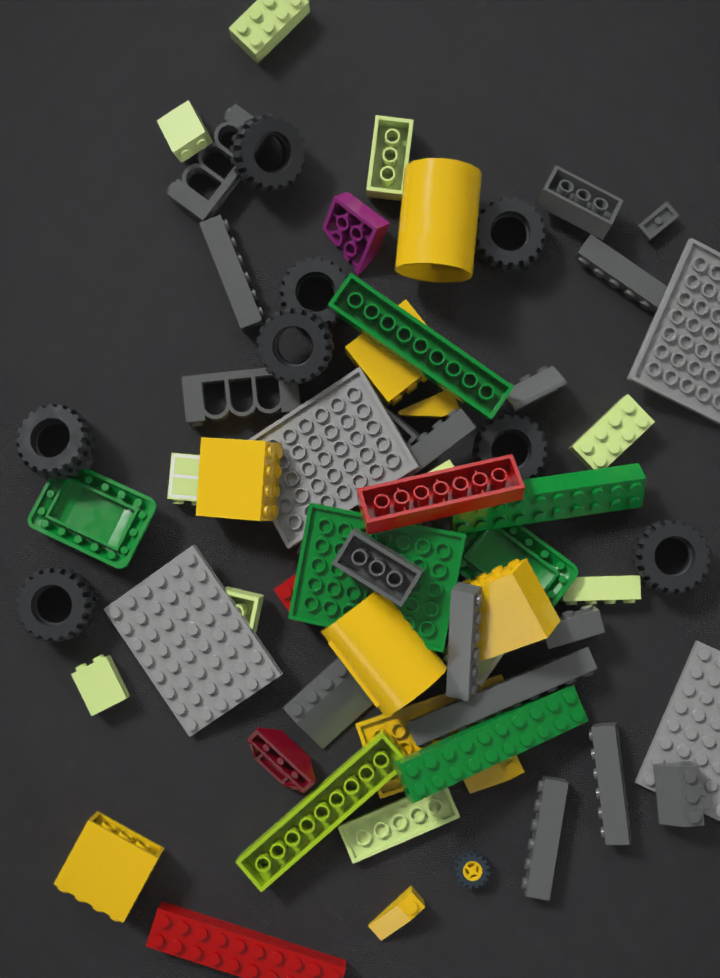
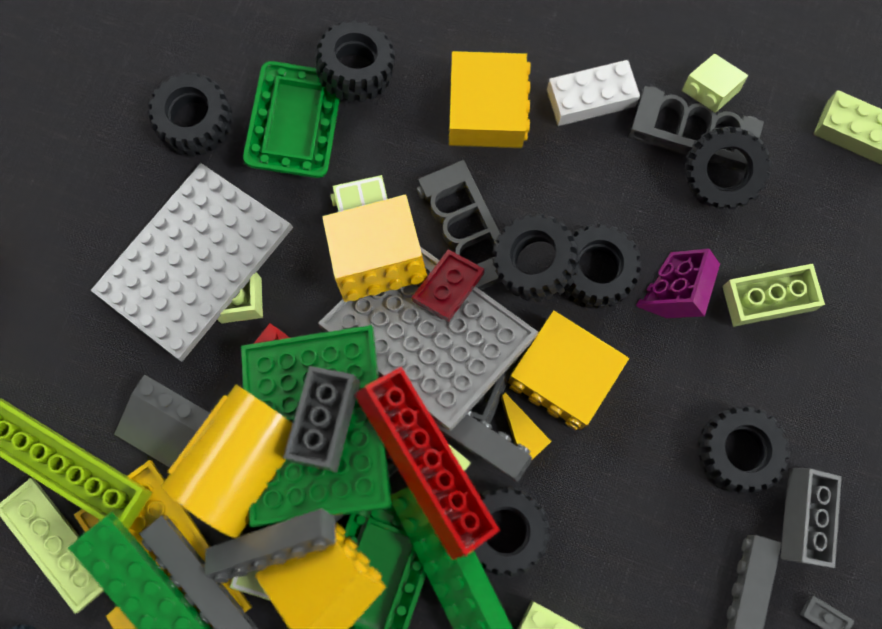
camera: 65 degrees right, 10 degrees down
(100, 684) = (121, 184): yellowish green brick -> none
(132, 335) = (489, 99): none -> yellow brick
(155, 241) = (593, 92): none -> white brick
(231, 272) = (589, 175): dark grey brick -> none
(282, 758) = (91, 393): dark red wedge -> none
(293, 427) = (448, 285): none -> dark red plate
(420, 347) = (581, 390): green brick -> none
(438, 220) = (728, 364): yellow piece -> none
(534, 388) = (583, 534): dark grey slope -> none

